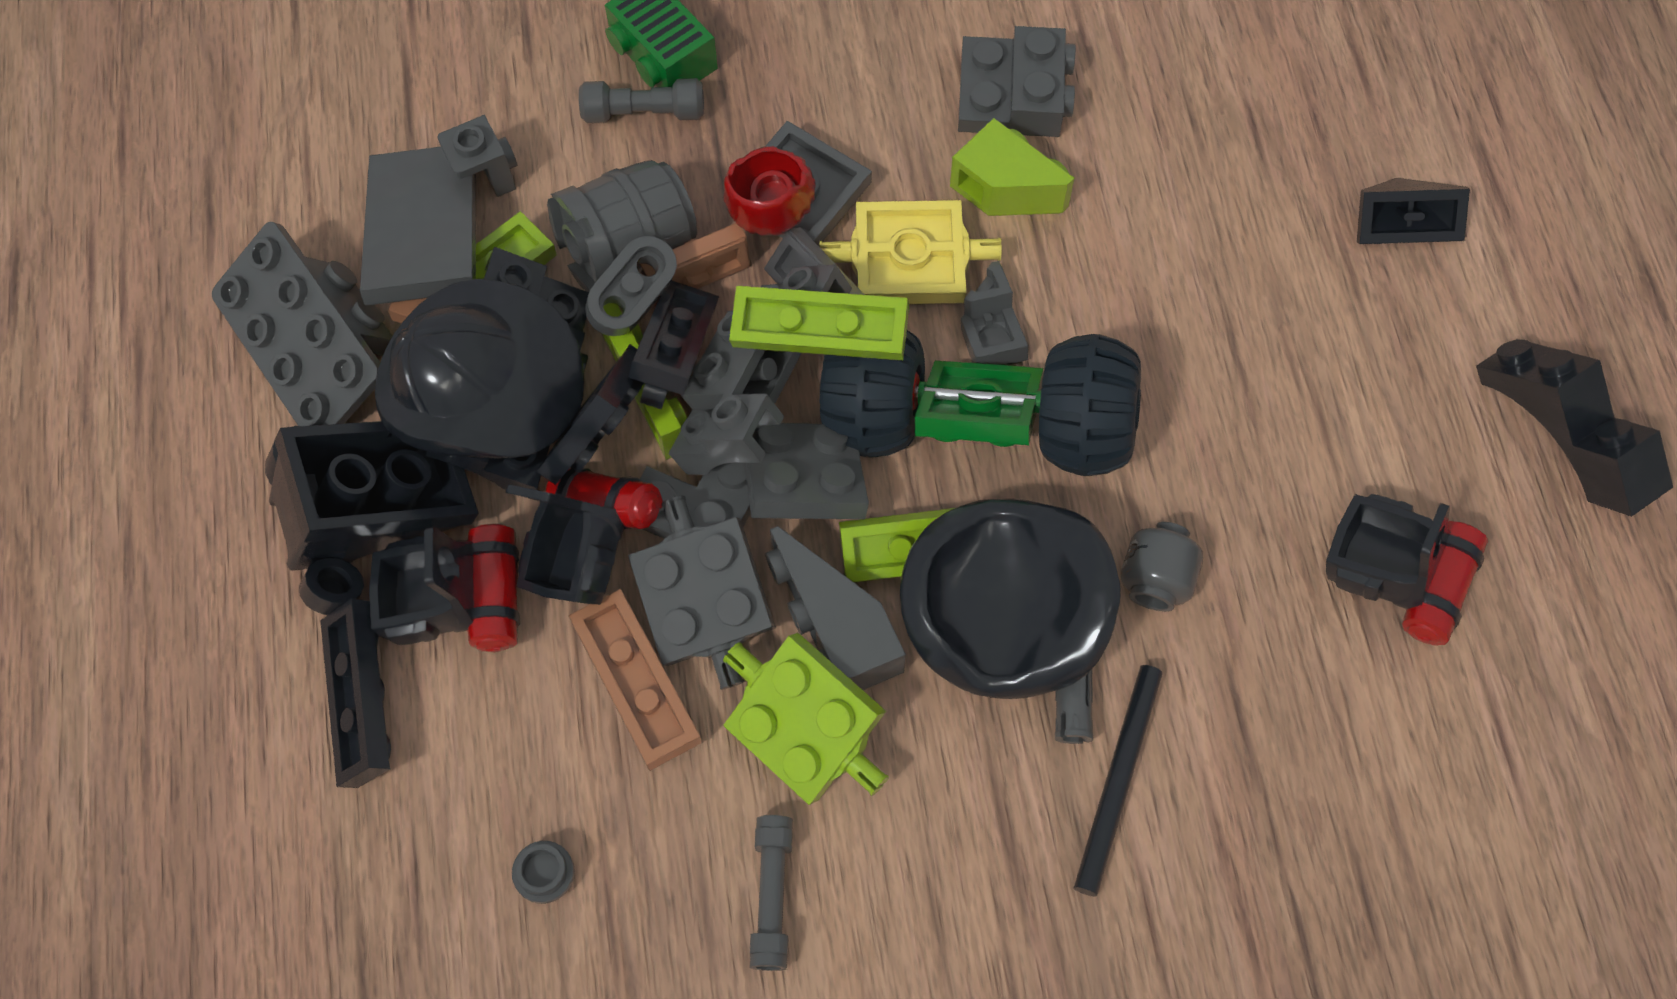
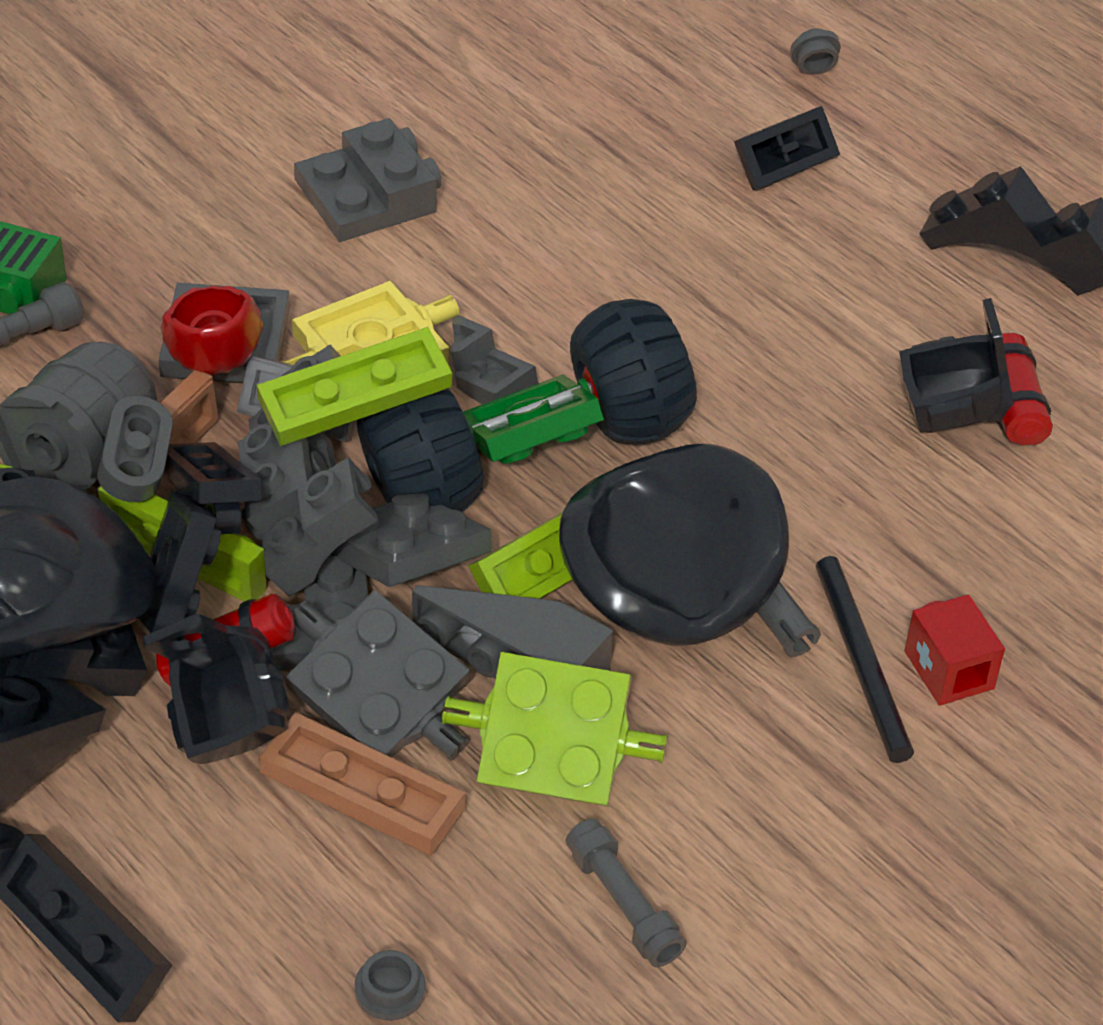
camera: 35 degrees left, 20 degrees down
(448, 586) = (116, 787): black piece -> none
(1008, 175) = (421, 247): lime slope -> none
(1162, 567) = (791, 469): dark grey head -> none
(1195, 819) = (954, 649): none -> red brick
(1515, 117) = (815, 51): none -> dark grey plate

